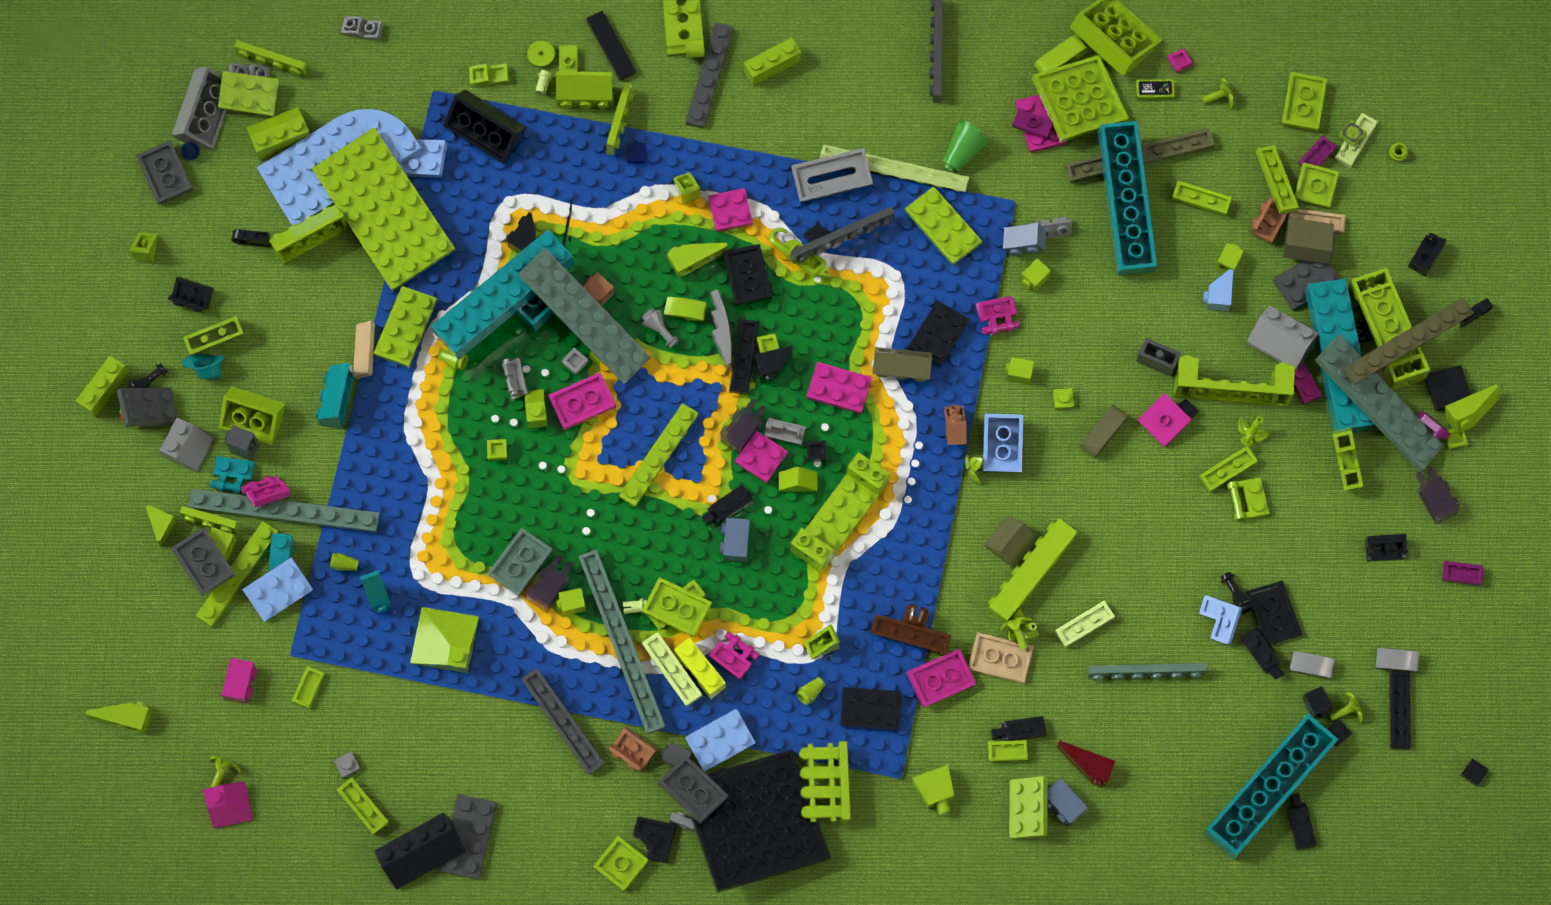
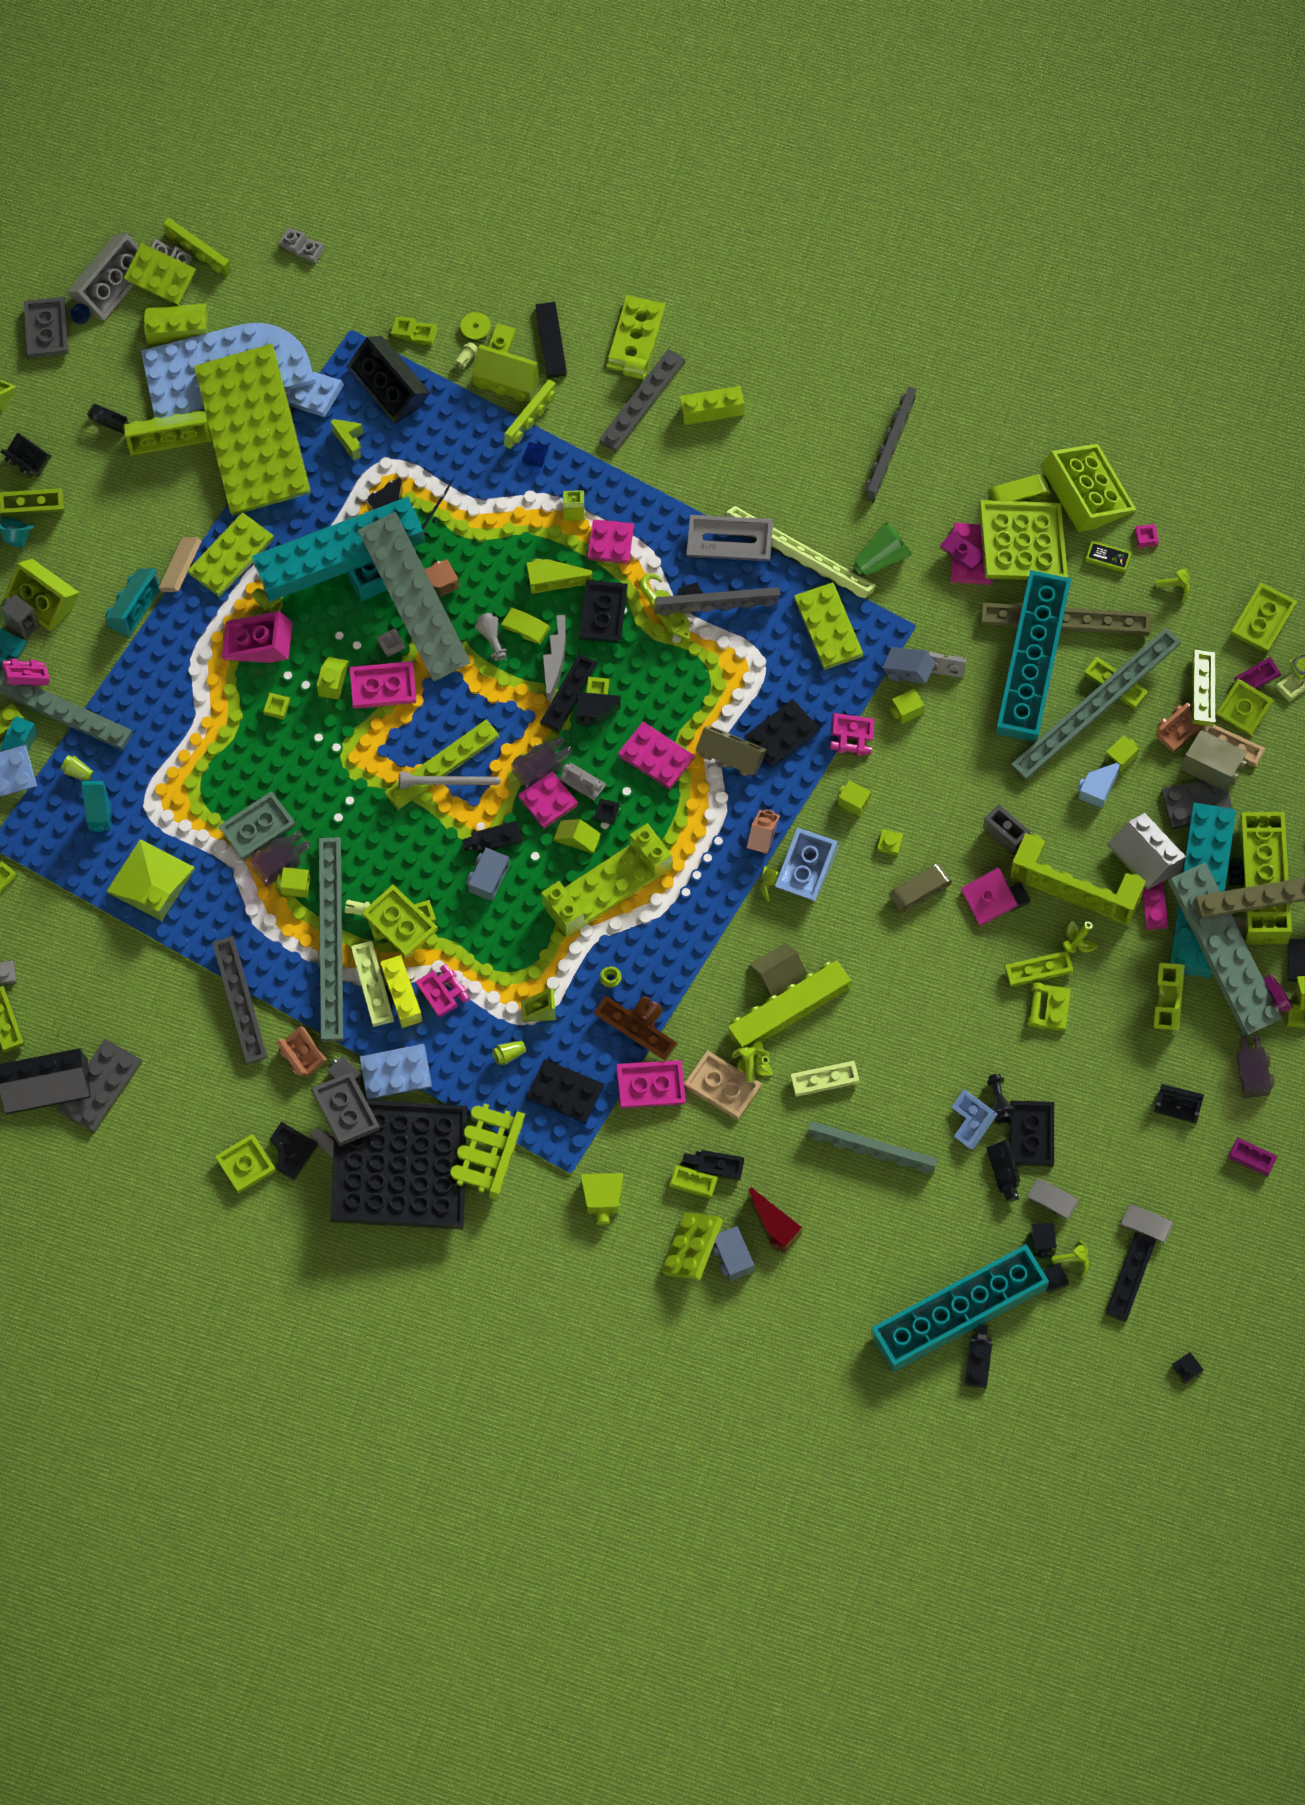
camera: 20 degrees right, 5 degrees down
(458, 395) = (258, 638): none -> dark pink slope
(465, 186) = (347, 435): none -> lime slope
(515, 378) = (322, 643): light grey hinge -> none
(635, 480) = (408, 780): none -> light grey piece
(875, 590) = (610, 971): none -> lime plate
(1193, 223) = (1096, 704): none -> sand green plate

